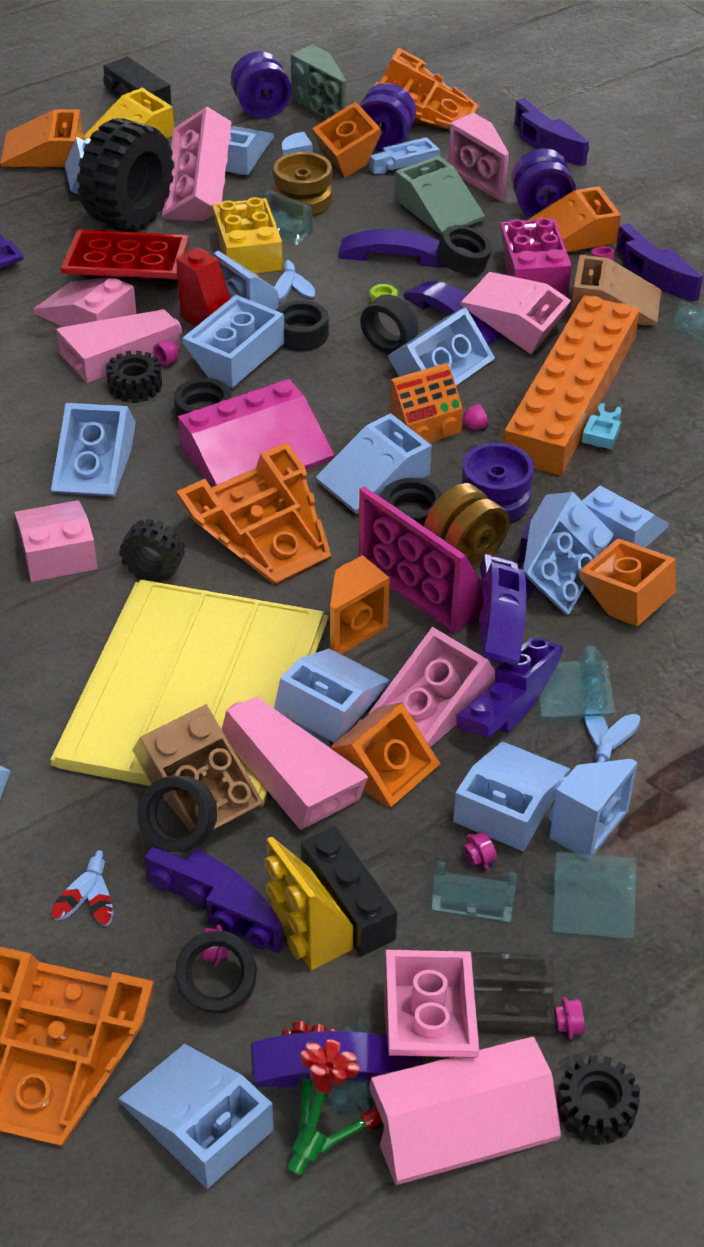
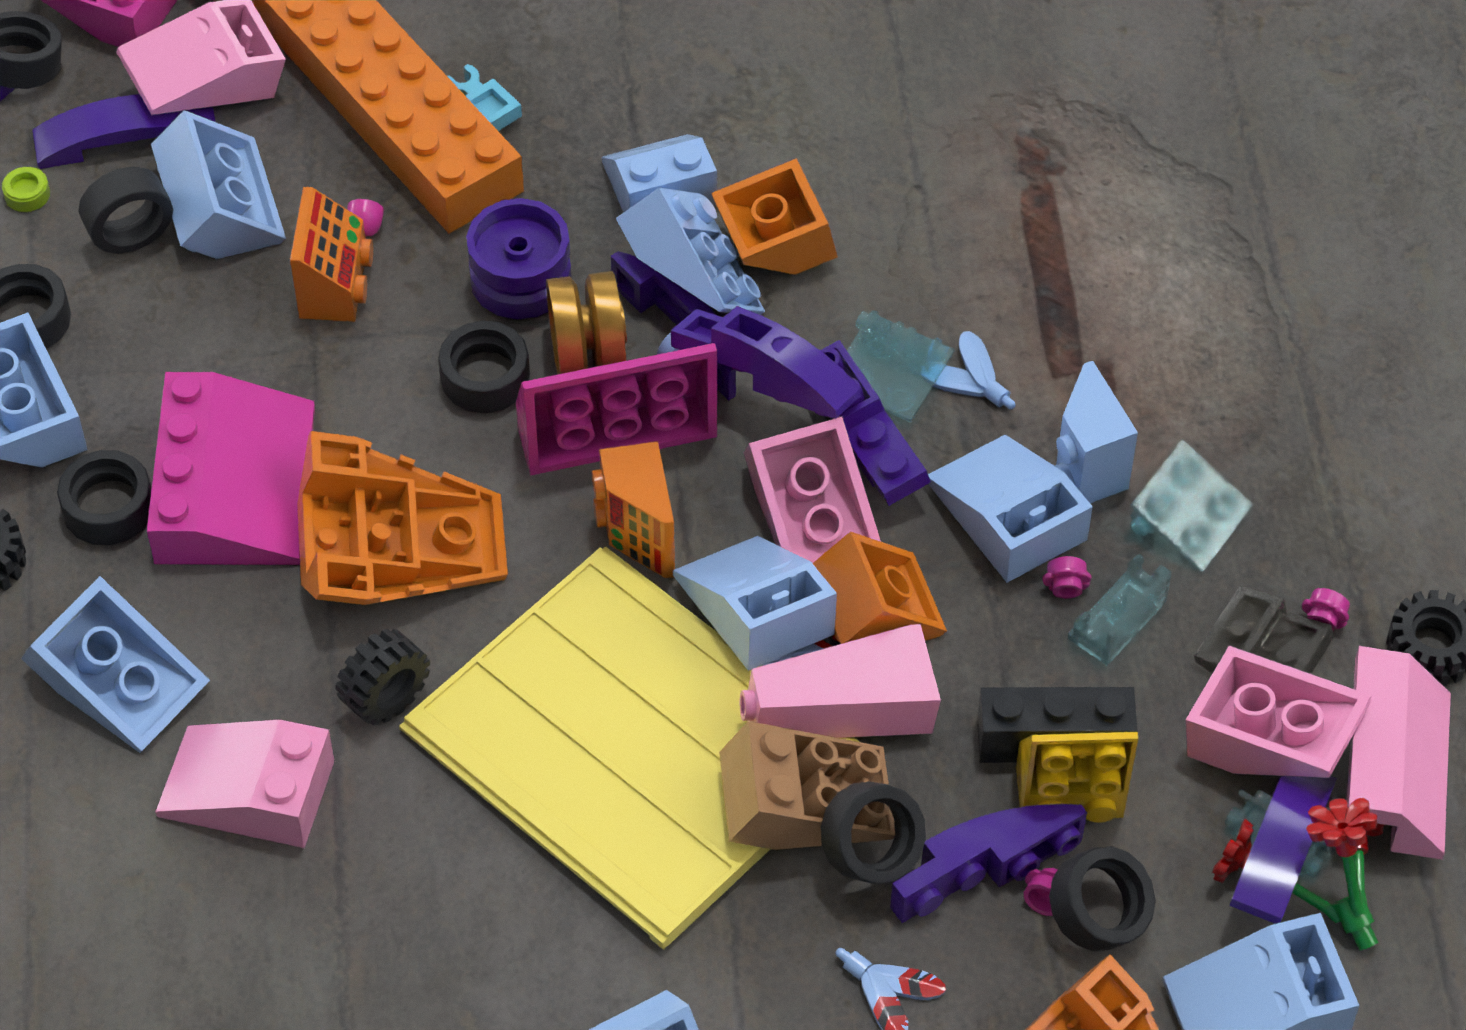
camera: 60 degrees left, 10 degrees up
(375, 459) = (387, 364): light blue slope -> none

